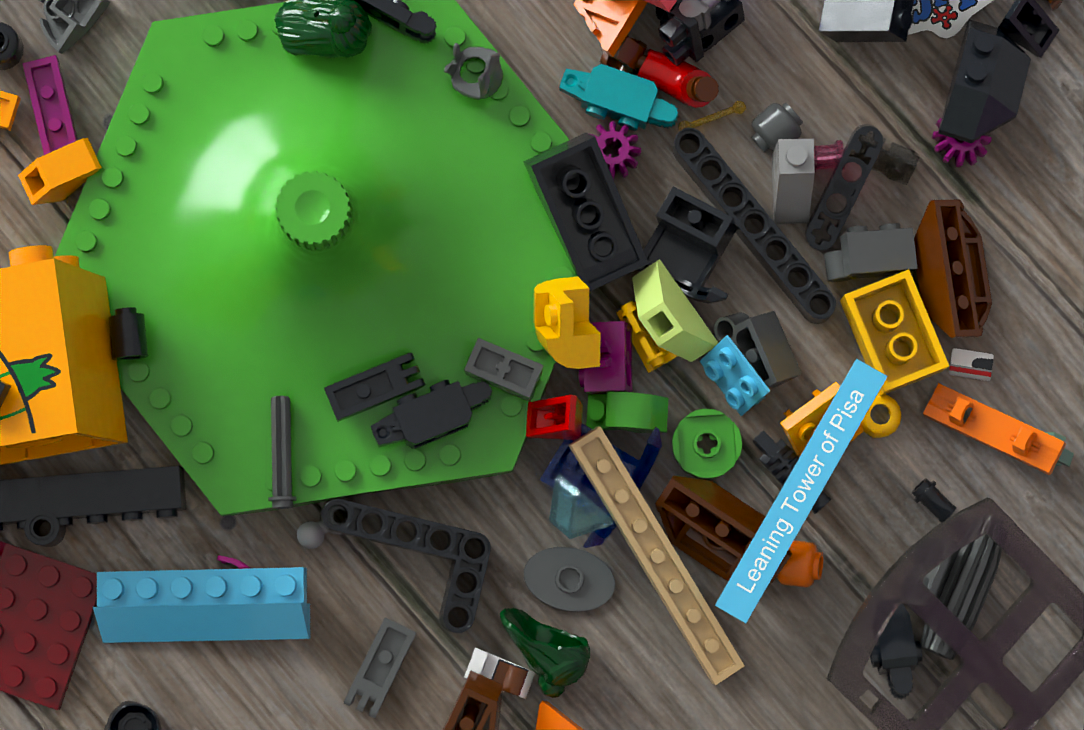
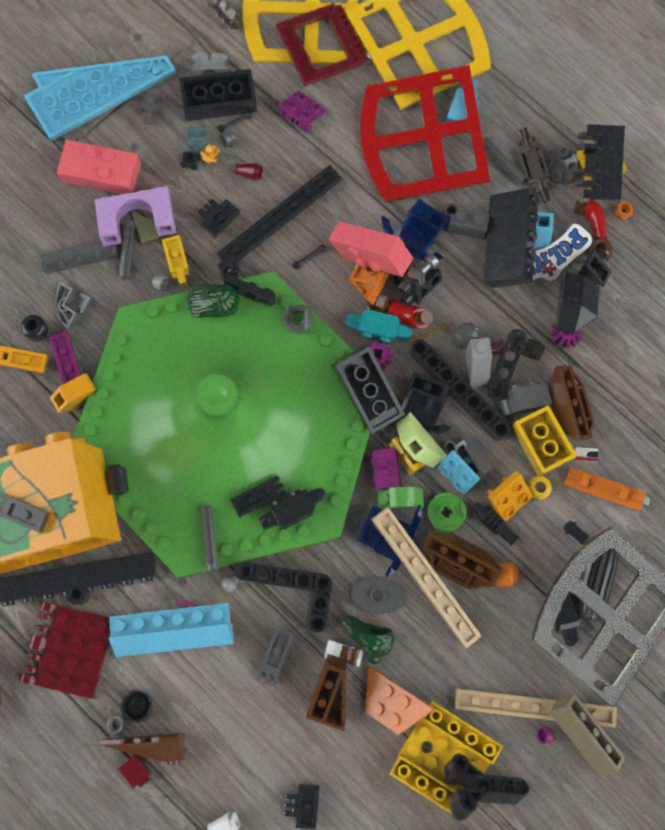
camera: 10 degrees left, 5 degrees down
(504, 369) = (330, 480): dark grey hinge -> none
(555, 418) = (361, 505): red slope -> none
(564, 323) = (361, 451): yellow brick -> none
(574, 512) = (377, 556): clear light blue slope -> none
(801, 491) = (503, 534): medium azure tile -> none

